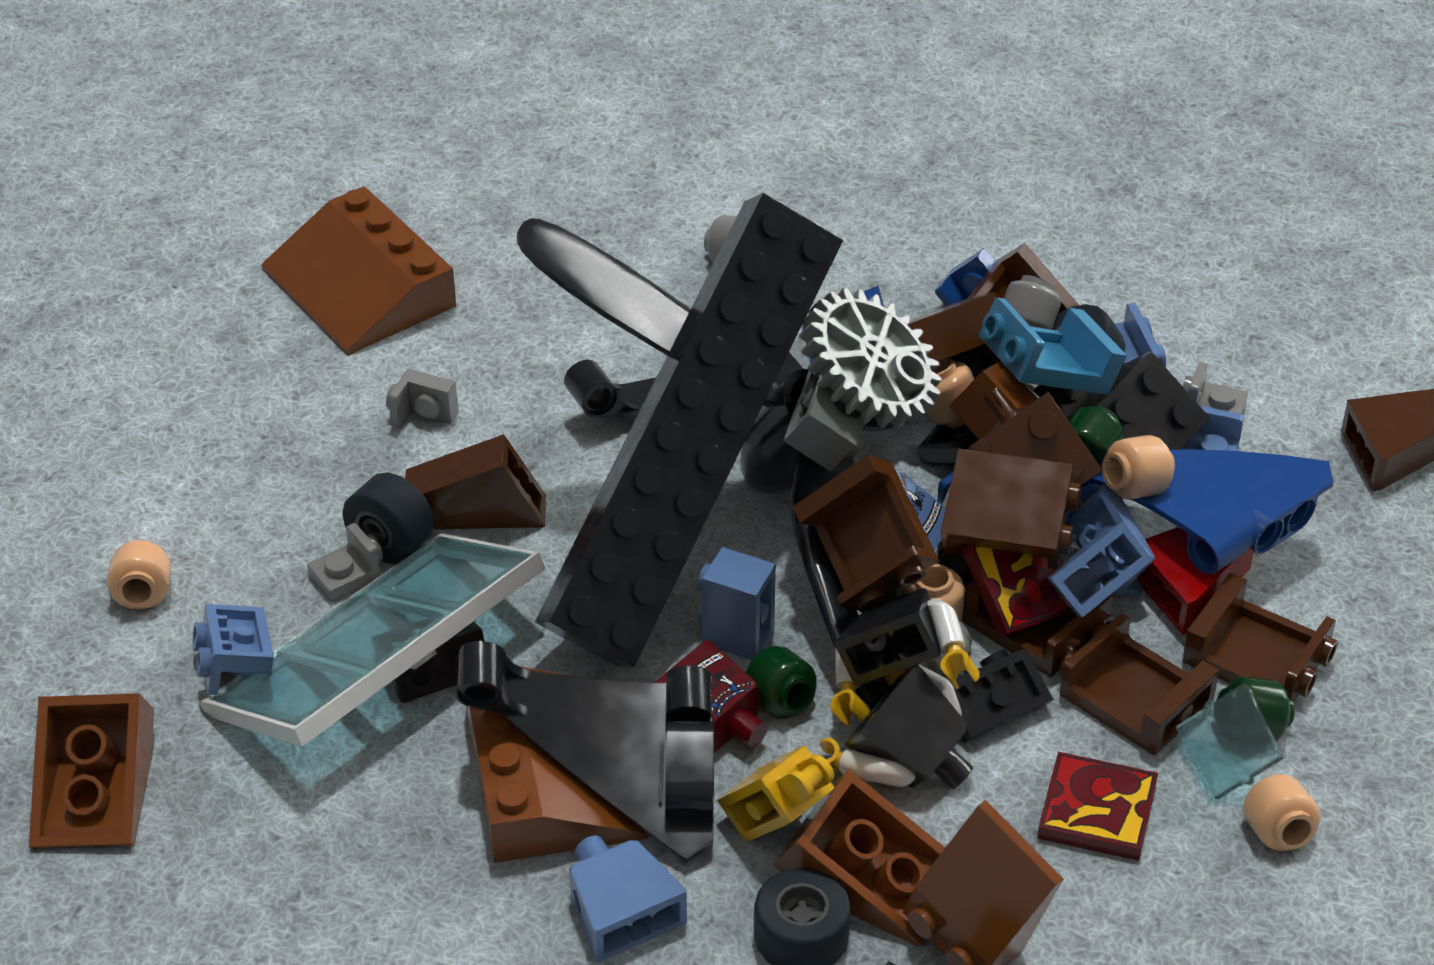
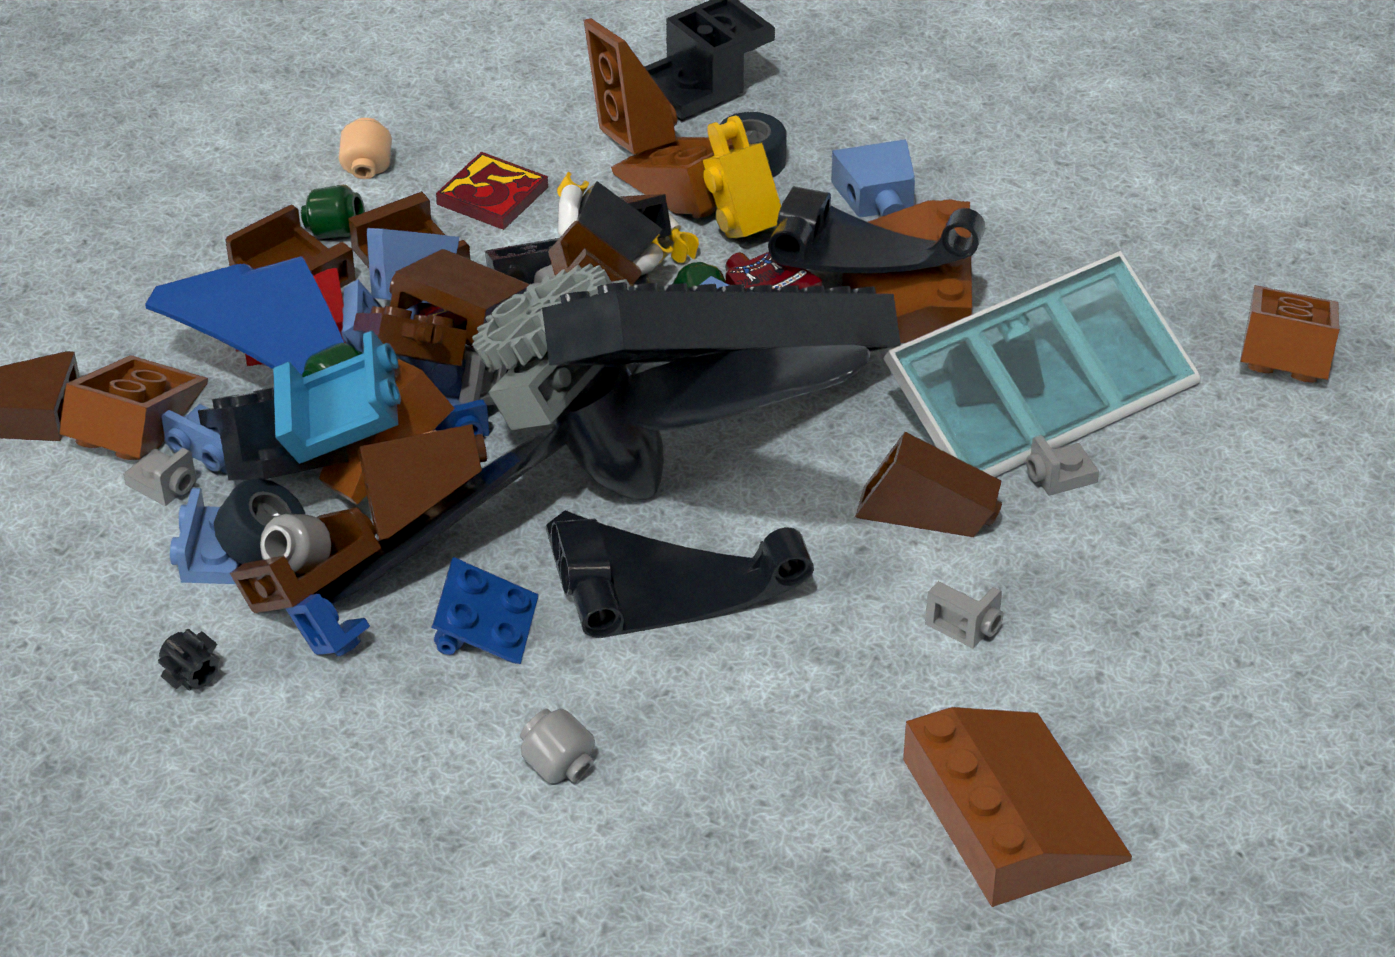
camera: 165 degrees left, 0 degrees up
(139, 575) = (1259, 478): light nougat head -> none
(233, 642) = (1169, 390): medium blue bracket -> none
(392, 513) = (1026, 471): black wheel -> none
(1067, 247) = (188, 660): none -> black gear
(1138, 467) = (322, 309): light nougat head -> none
(1229, 742) = (370, 181): clear light blue piece -> none
(1298, 424) = (124, 405): none -> dark orange slope

